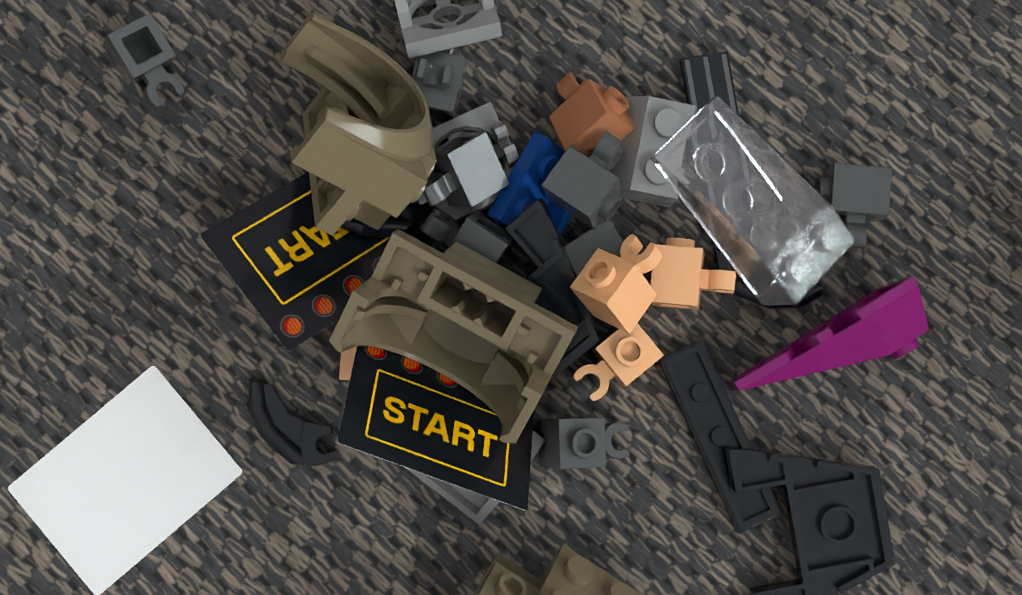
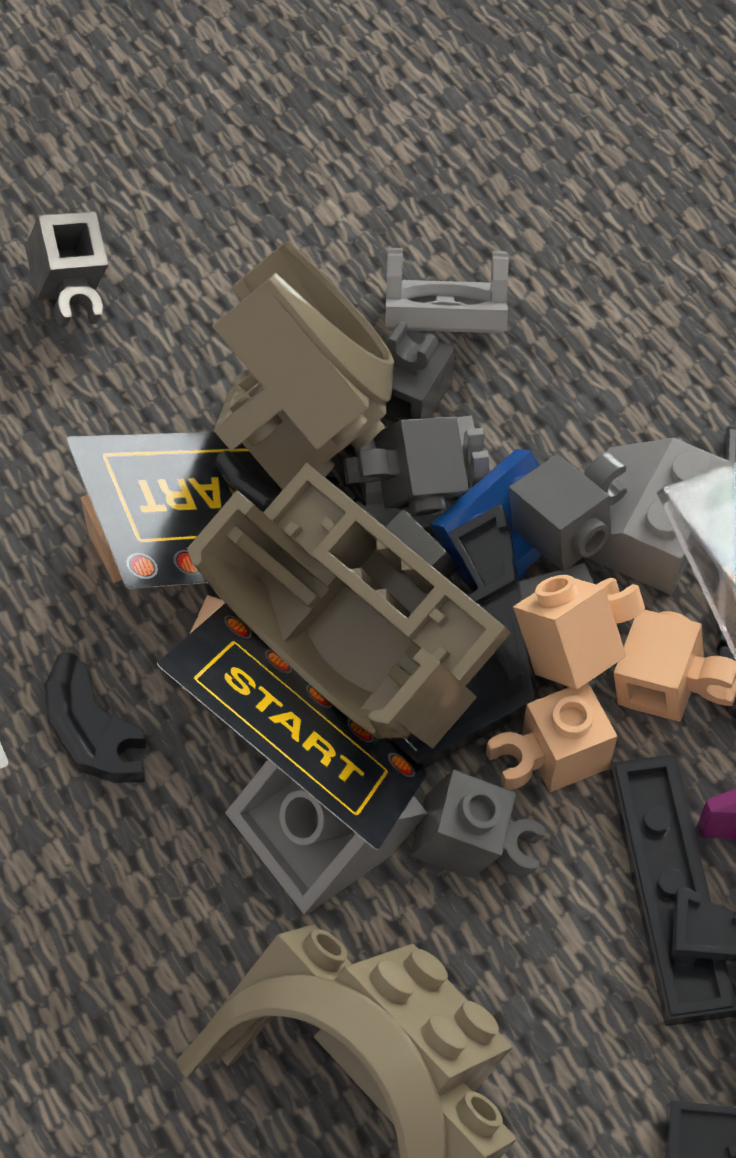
camera: 20 degrees right, 25 degrees down
(589, 114) = (596, 432): nougat brick -> none

